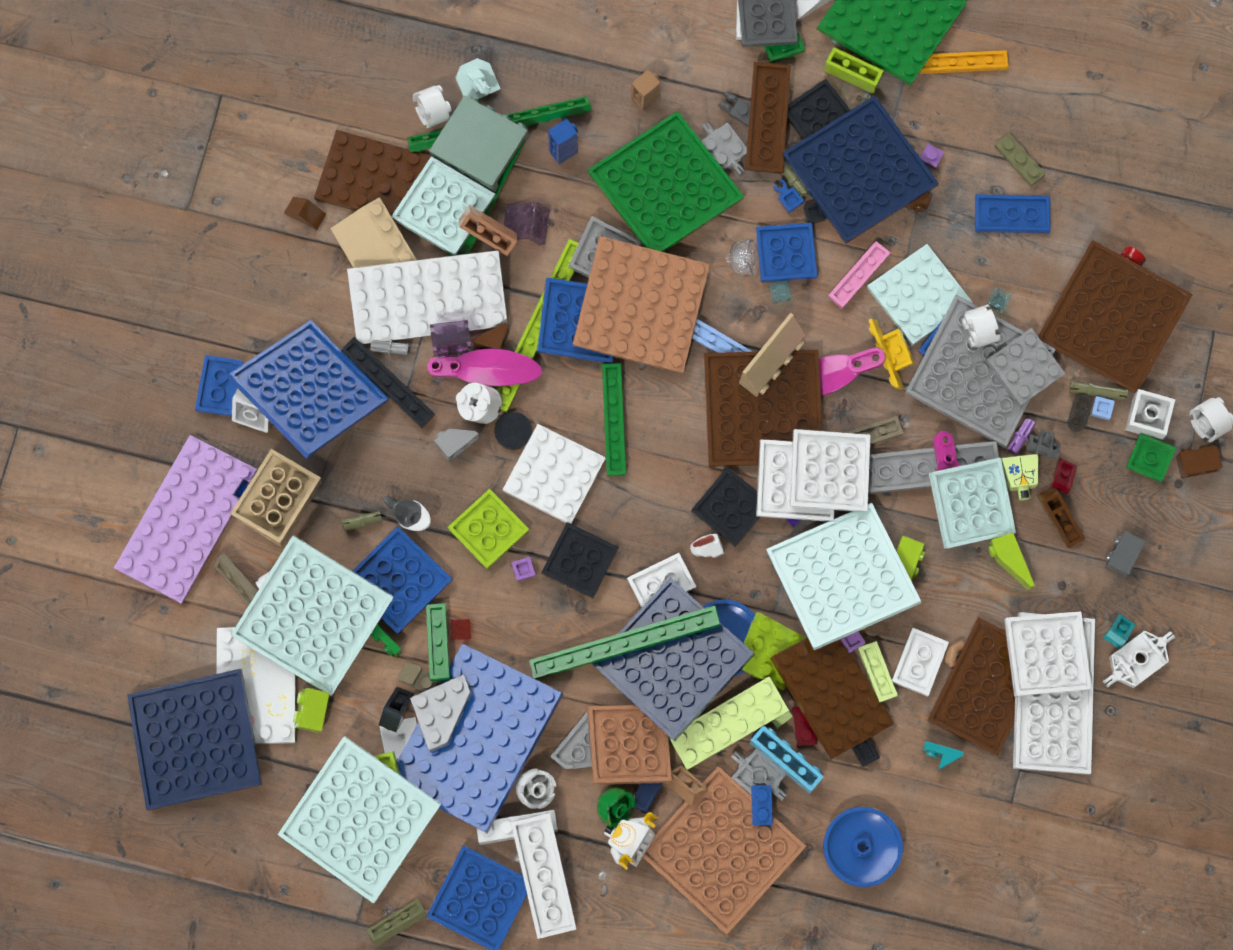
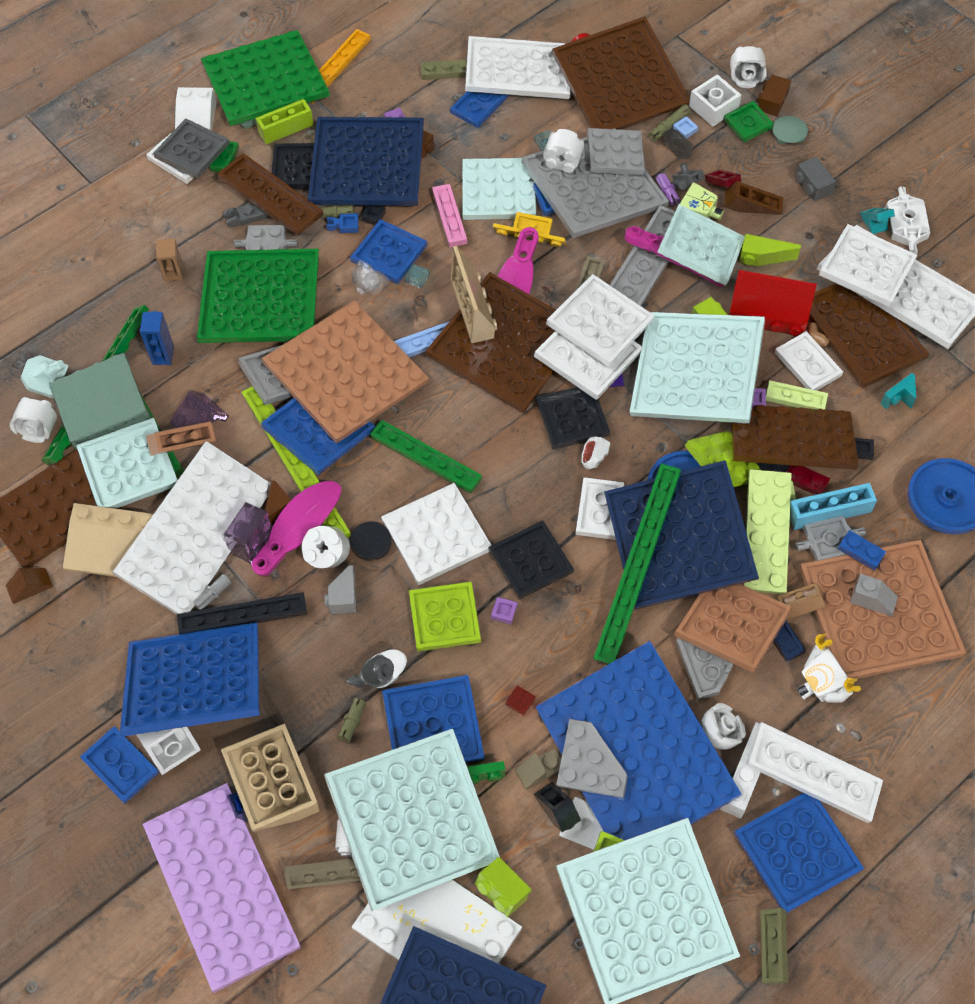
camera: 50 degrees left, 15 degrees down
(438, 642) = (520, 725): plate -> none
(615, 806) = (782, 671): green cylinder -> none
(724, 838) = (874, 595): none -> light grey slope
(947, 598) = (779, 300): none -> red slope
(1060, 217) = (514, 68): none -> white plate
(1170, 499) = (790, 130): none -> sand green dish

